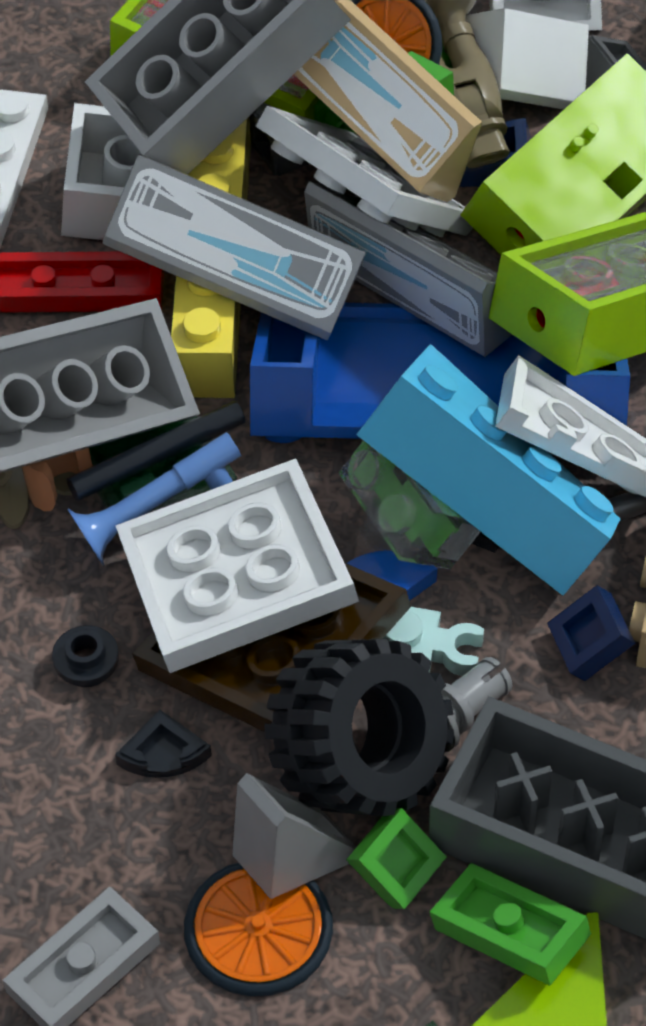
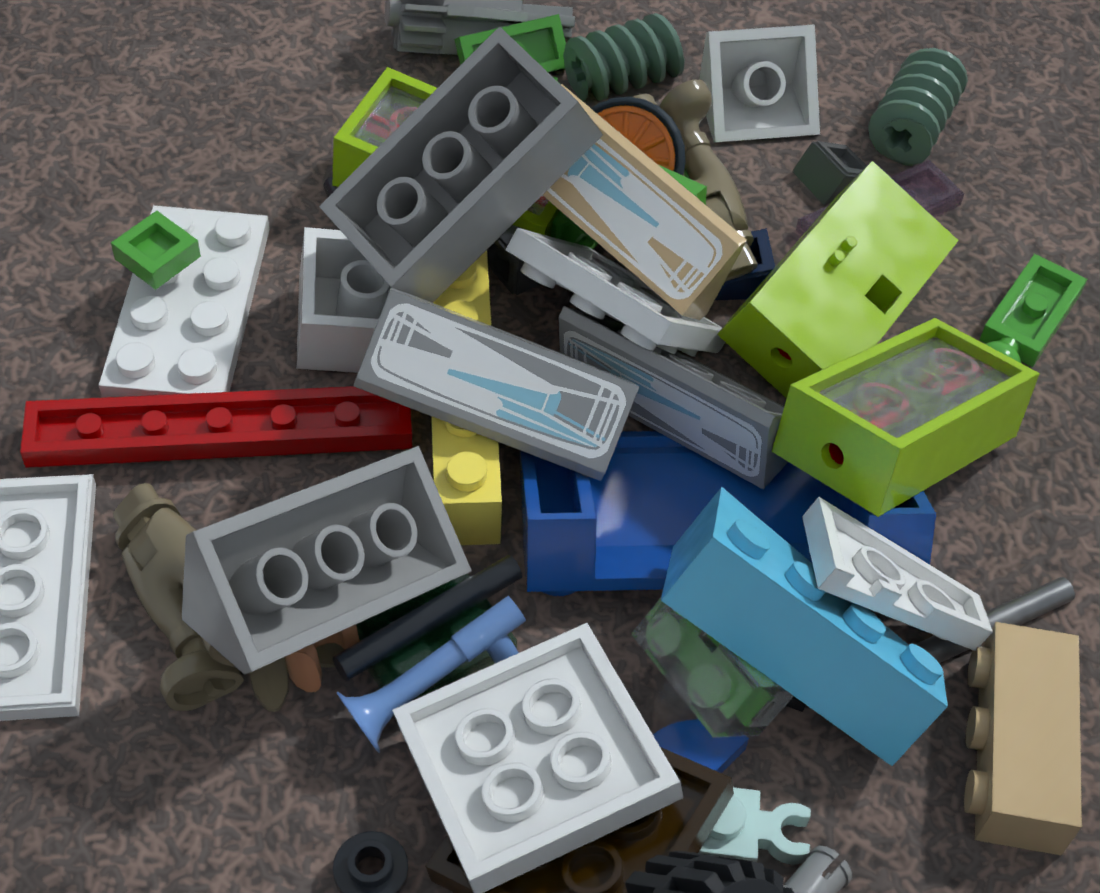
camera: 10 degrees left, 0 degrees up
(533, 55) = (768, 163): white slope -> none
(591, 633) = (928, 809): dark blue plate -> none

